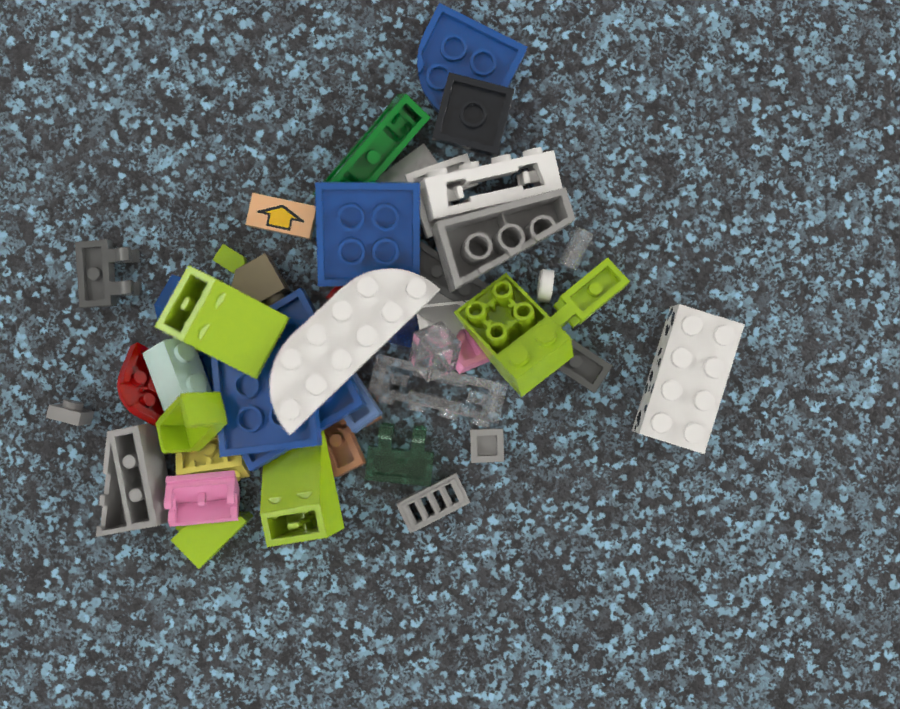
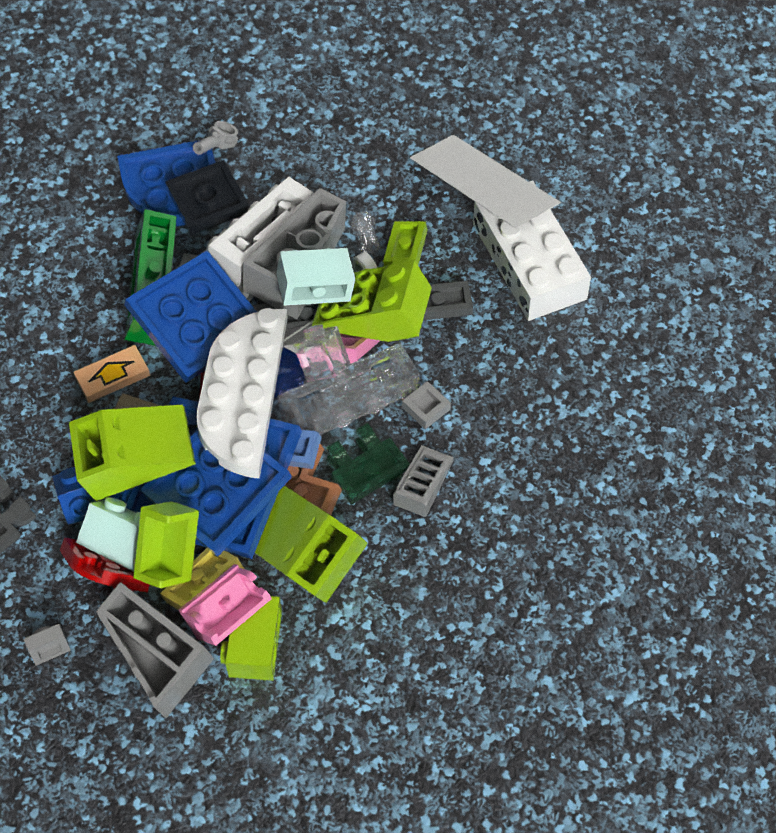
camera: 40 degrees left, 30 degrees down
(477, 290) = (315, 276): none -> light aqua brick
(542, 51) = (220, 135): none -> light grey plate
(707, 290) = (485, 181): none -> white sticker

